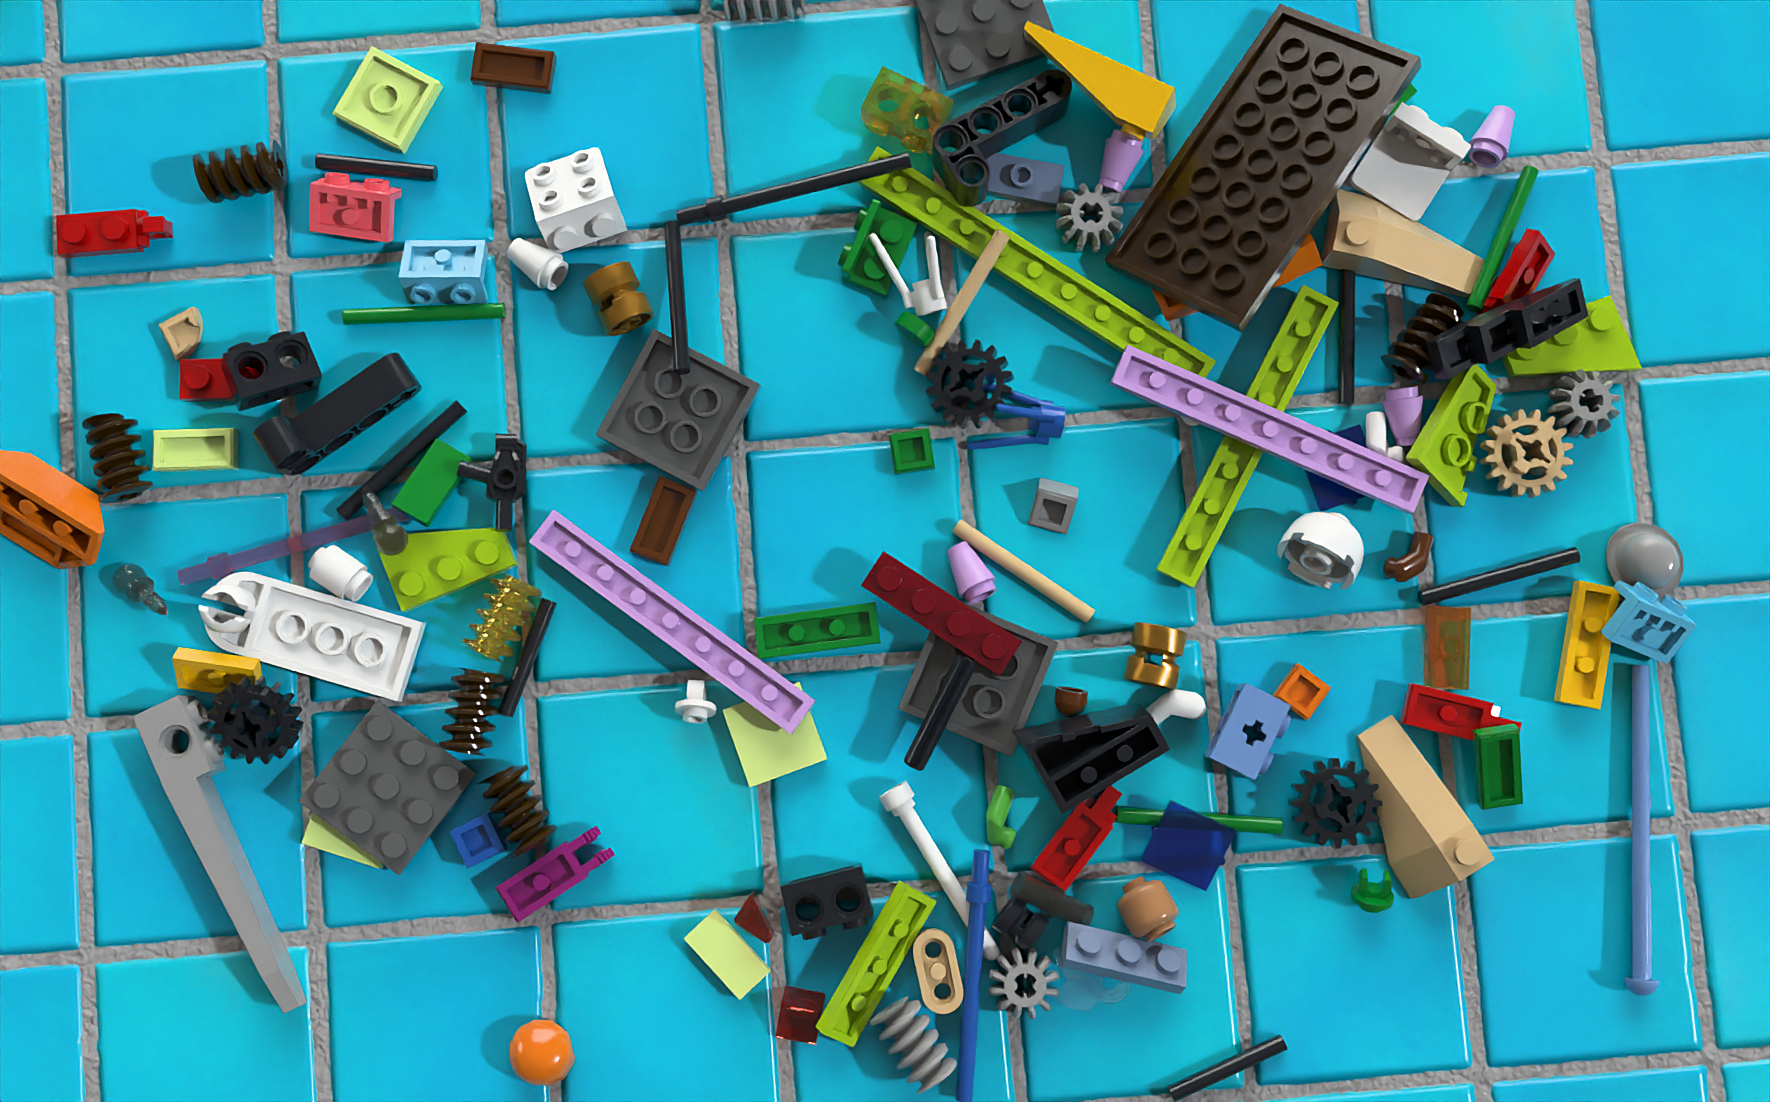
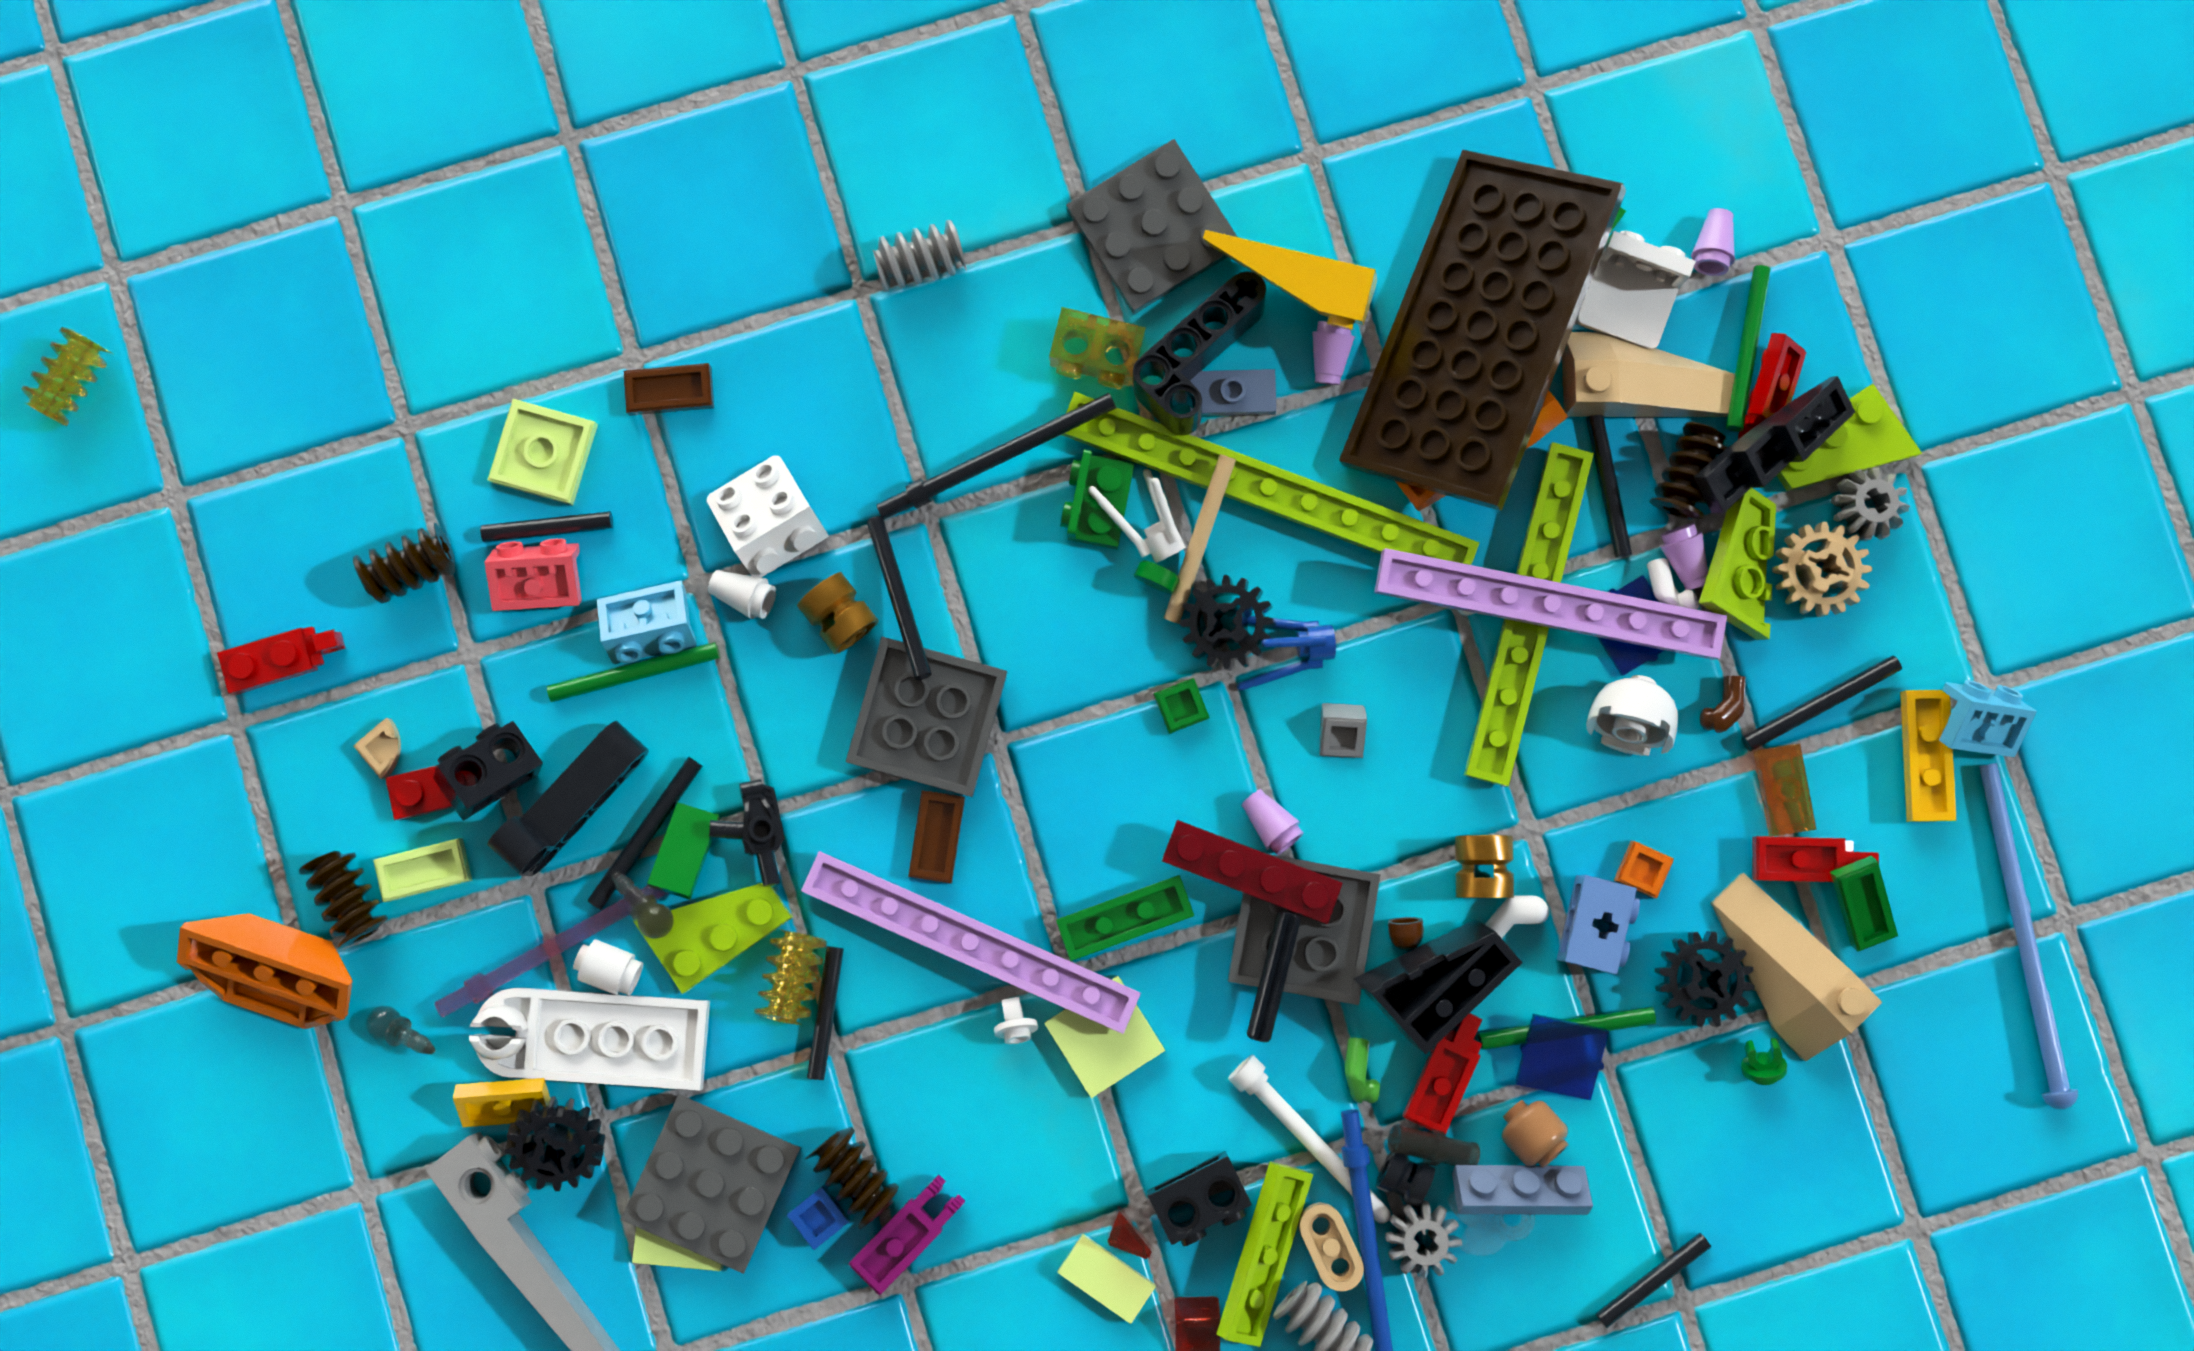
camera: 15 degrees left, 0 degrees up
(471, 711) = (782, 1083): dark brown piece -> none
(1023, 571) = (1326, 806): tan bar -> none
(1091, 231) = (1317, 434): light grey gear -> none
(1645, 556) = (1968, 649): light grey hat -> none

